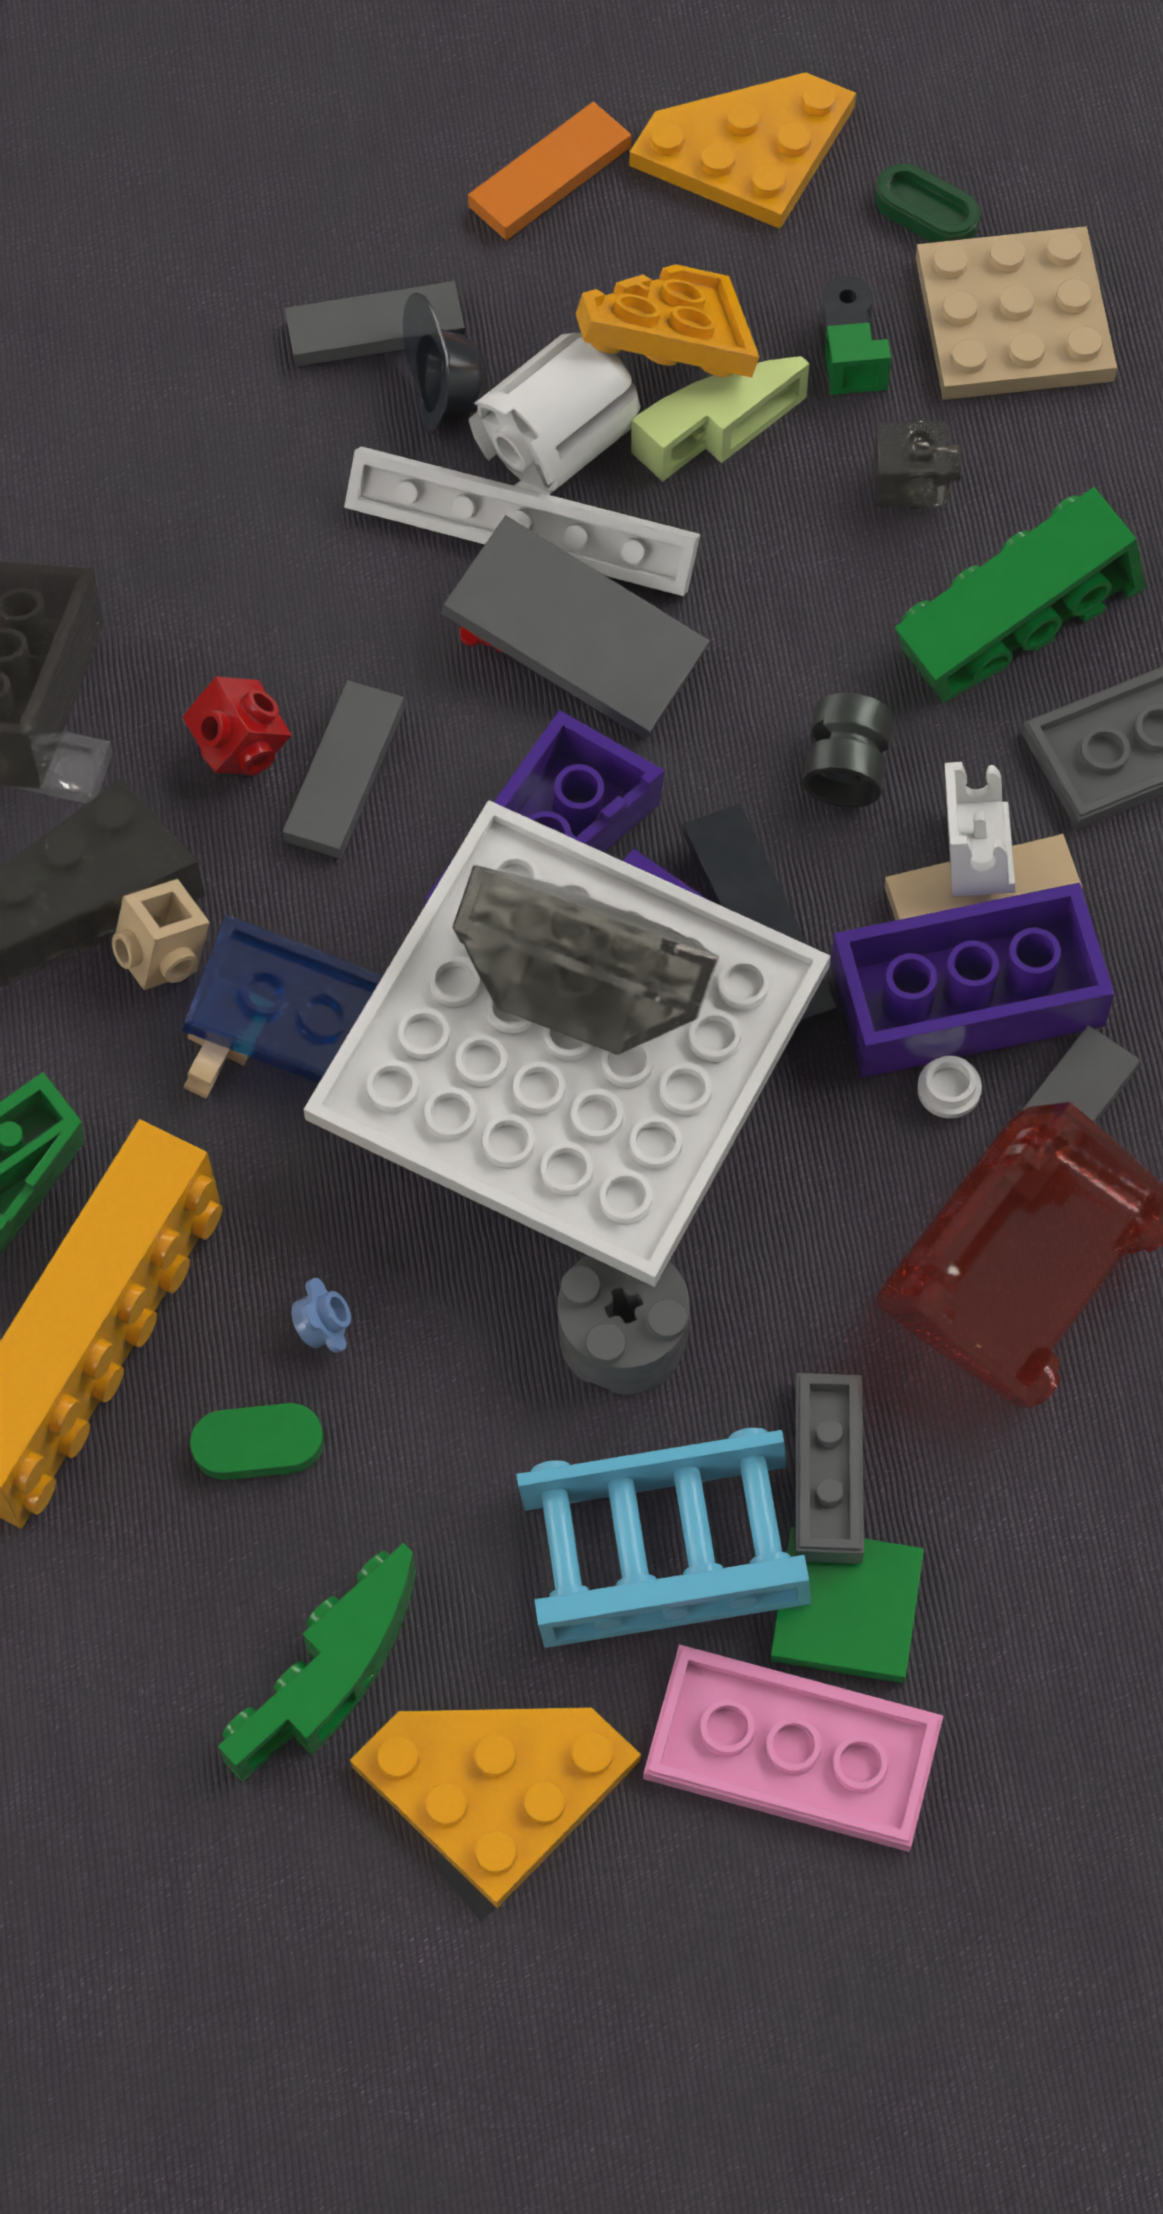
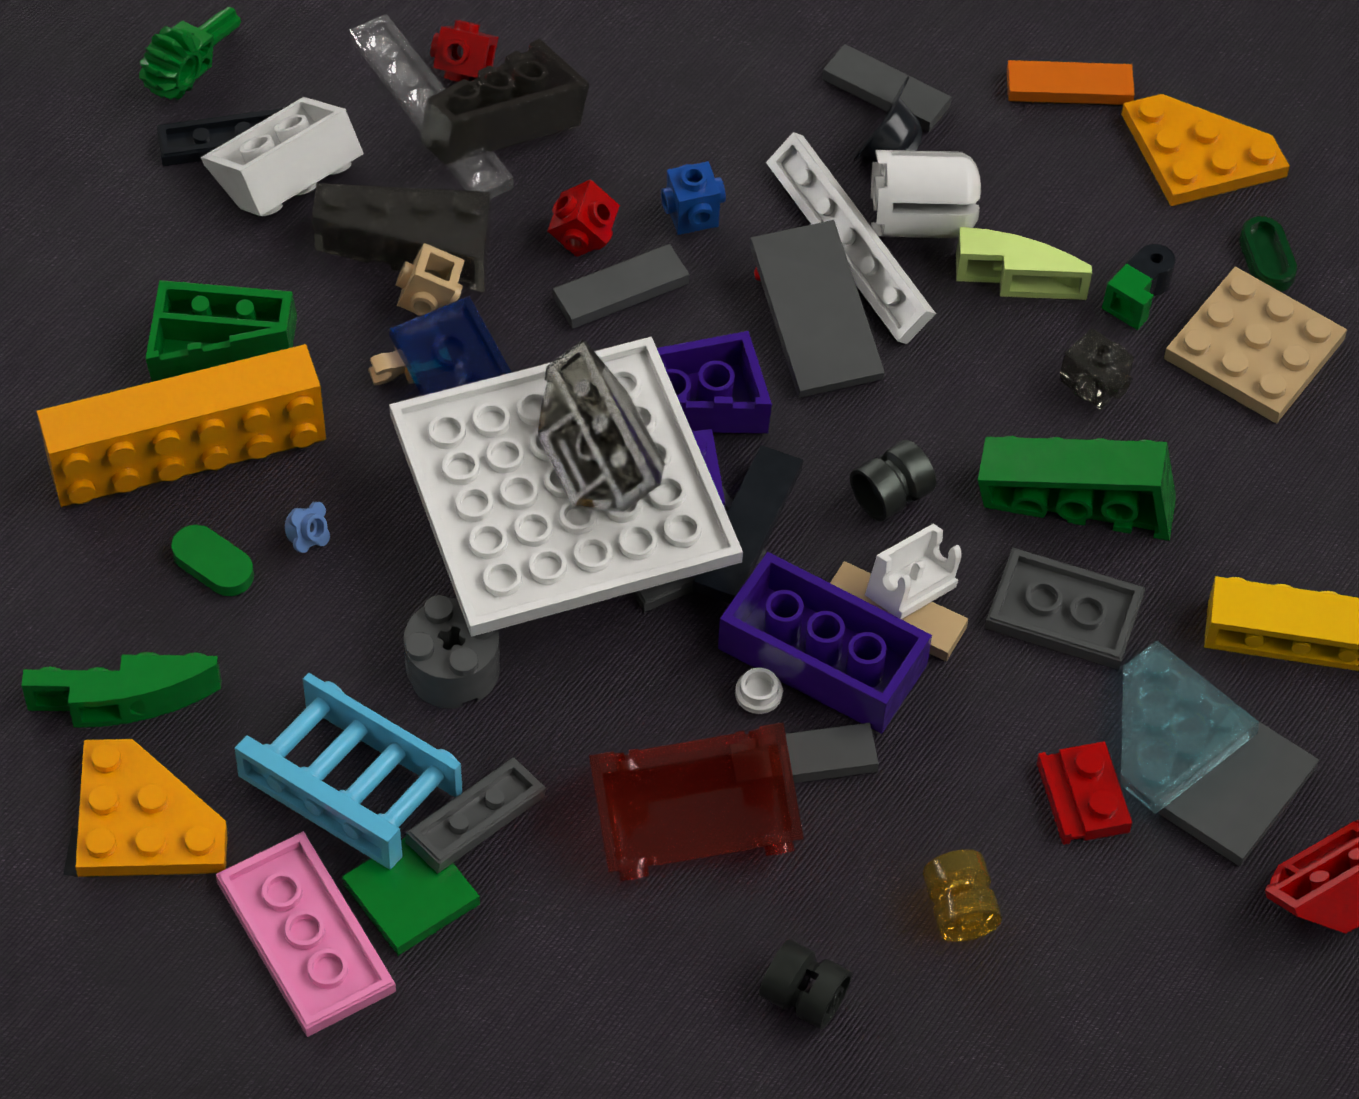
camera: 40 degrees right, 10 degrees down
(321, 607) = (693, 197): none -> blue brick
(673, 319) = (1038, 197): light orange plate -> none

